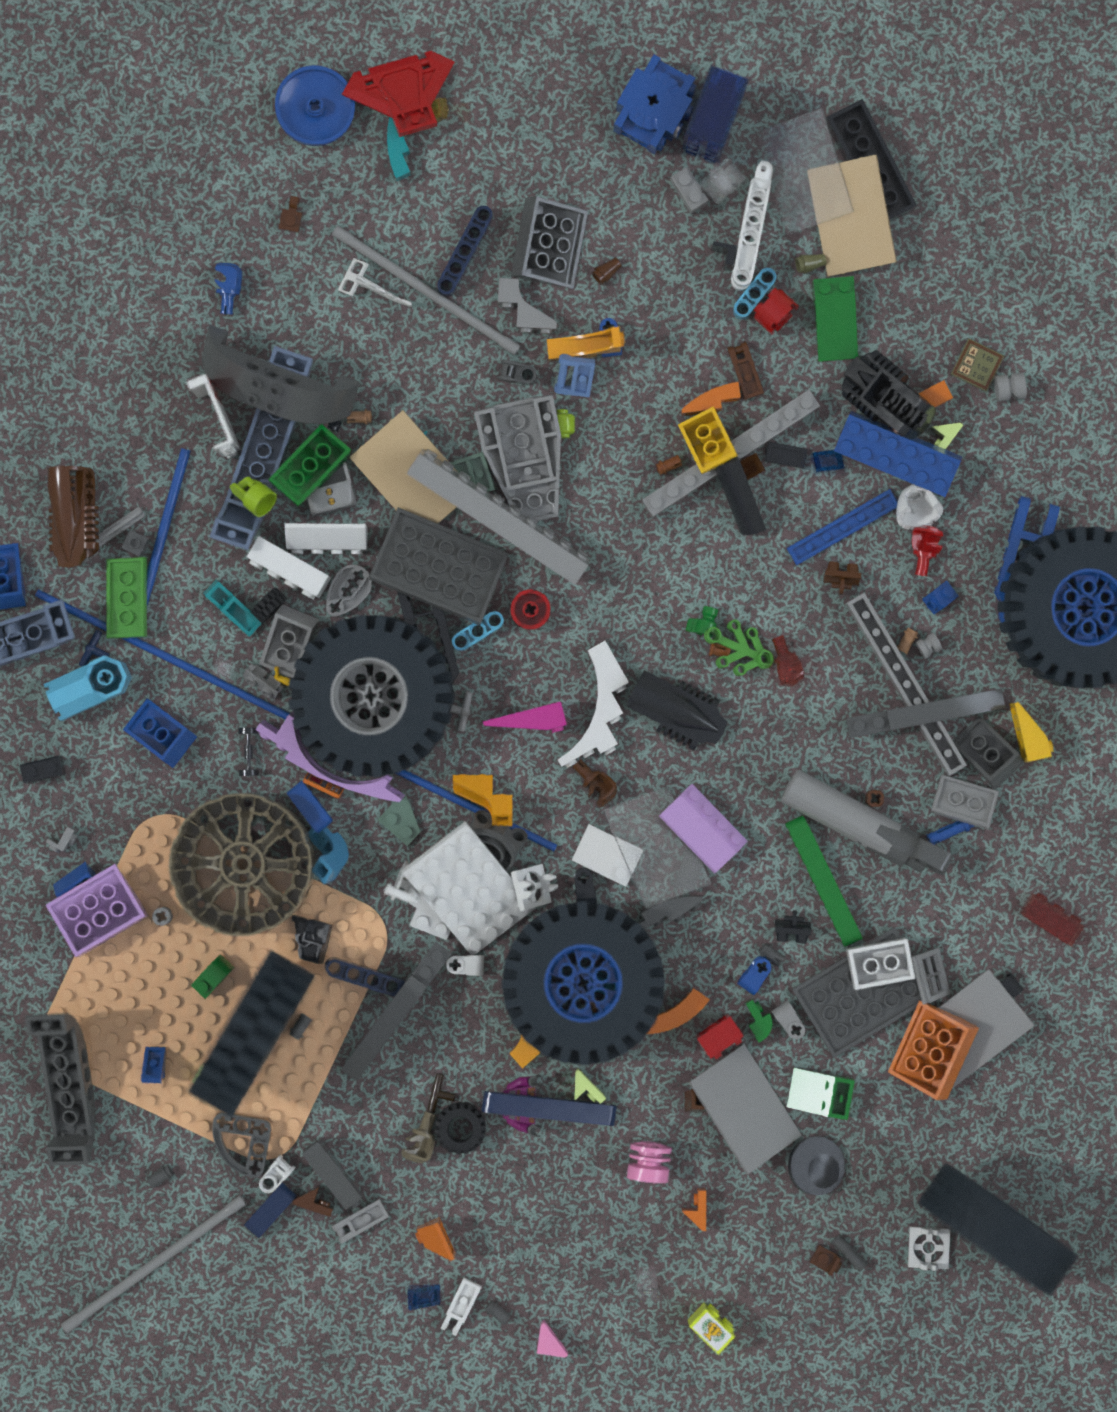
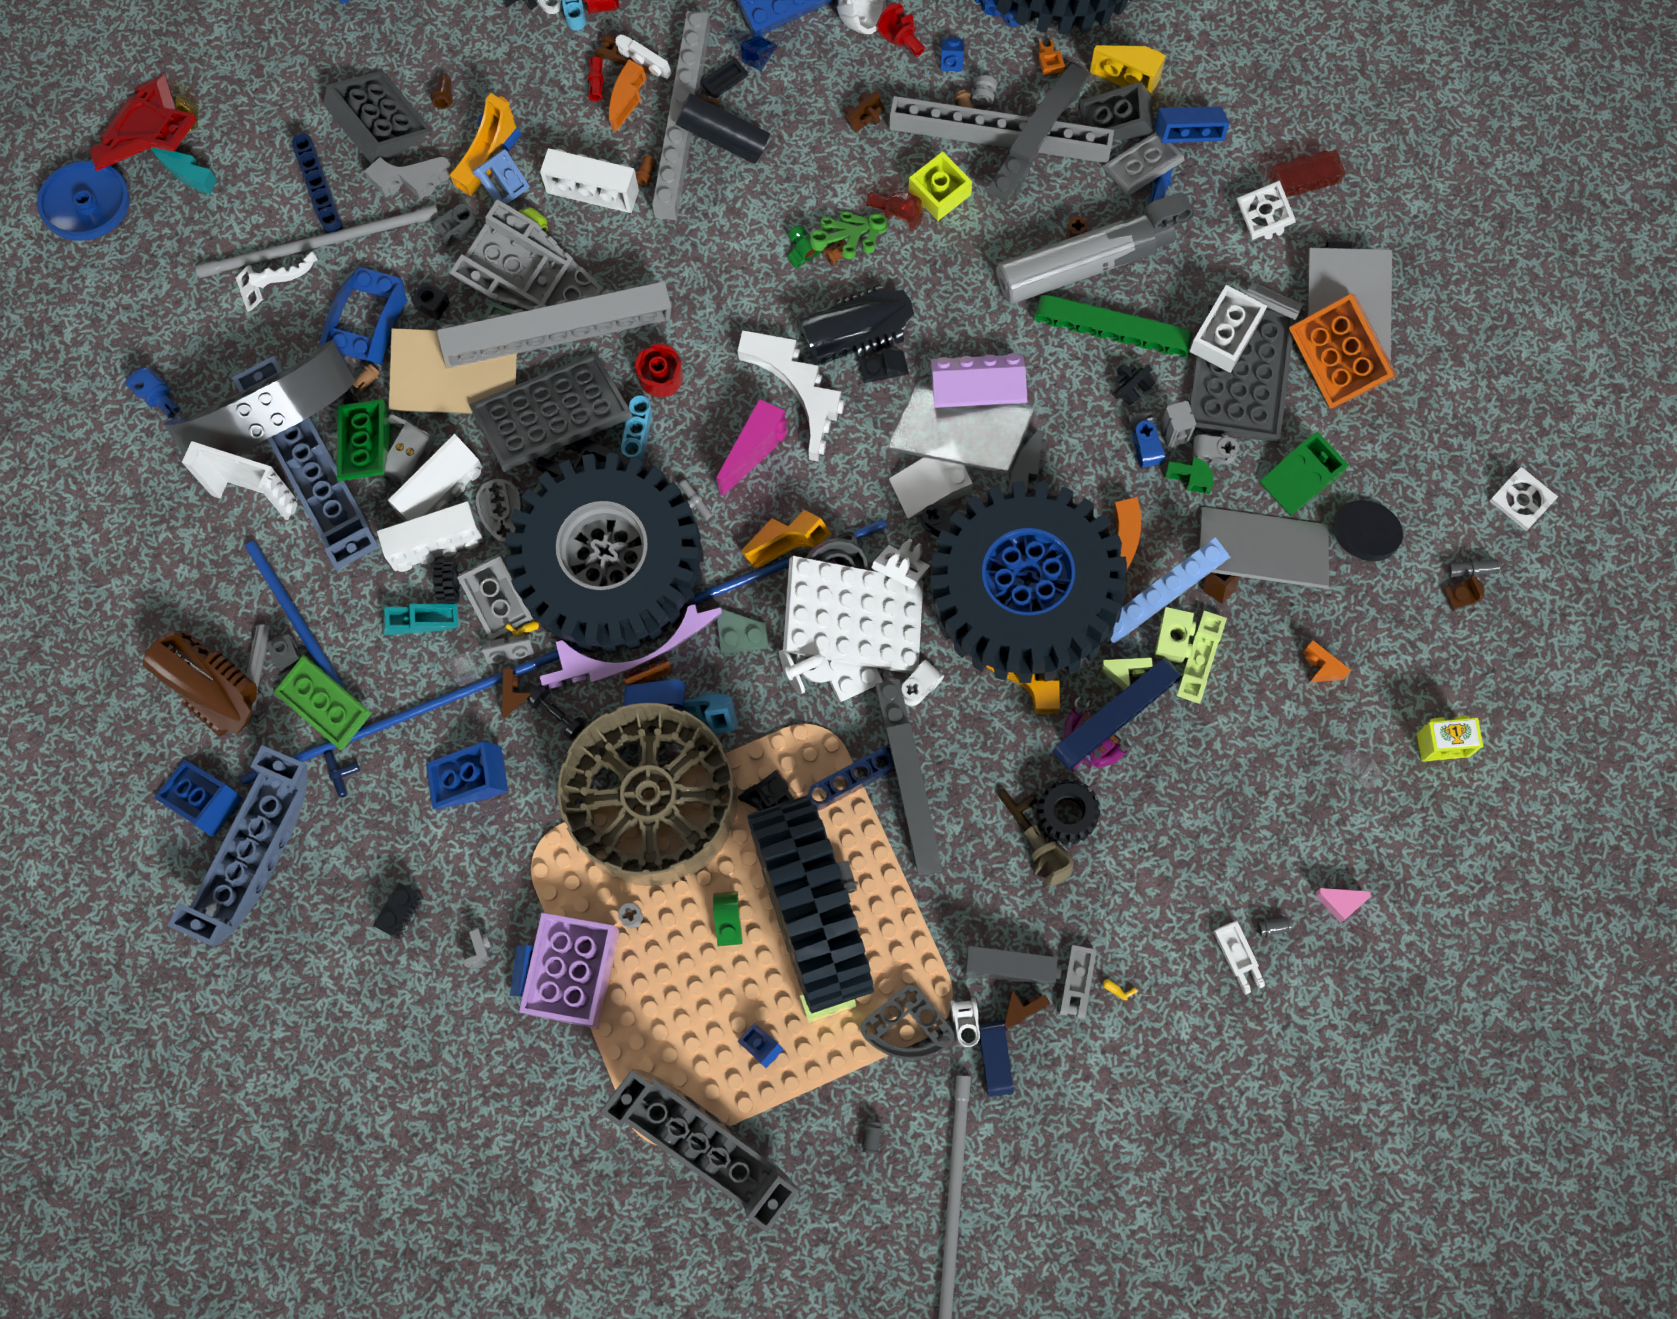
camera: 45 degrees left, 15 degrees down
(88, 686) = (363, 799): medium azure brick -> none
(231, 717) = (510, 700): none -> reddish brown slope
(257, 499) = (341, 504): lime piece -> none
(290, 218) = (153, 297): reddish brown plate -> none
(376, 387) = (357, 345): none -> blue wedge
(376, 1248) = (1115, 989): none -> yellow piece
(423, 1296) = (1200, 983): clear blue slope -> none
(435, 1238) = (1154, 921): orange slope -> none
(452, 416) = (433, 308): none -> black brick
(598, 782) = (861, 436): reddish brown piece -> none
(624, 438) = (589, 180): none -> white brick
(624, 1098) = (1181, 623): none -> yellowish green brick
(635, 1128) = (1201, 657): none -> yellowish green slope
(649, 1162) = (1243, 667): bright pink wheel -> none
(664, 753) = (882, 367): none -> black slope
(664, 1073) = (1169, 587): none -> light blue plate
(707, 367) = (595, 78): none -> red pin
(707, 440) = (651, 115): yellow slope -> none
(719, 1036) = (1178, 514): red container -> none
(747, 388) = (642, 55): none -> white hinge
(785, 982) = (1177, 423): none -> light grey brick
(826, 679) = (940, 186): none -> neon yellow brick
(842, 527) = (824, 82): blue tile -> none
(976, 918) = (1262, 197): none -> white piece
(993, 670) = (1050, 60): none -> orange plate
(997, 1229) = (1565, 393): black wheel -> none
(1020, 812) = (1191, 124): none -> blue brick

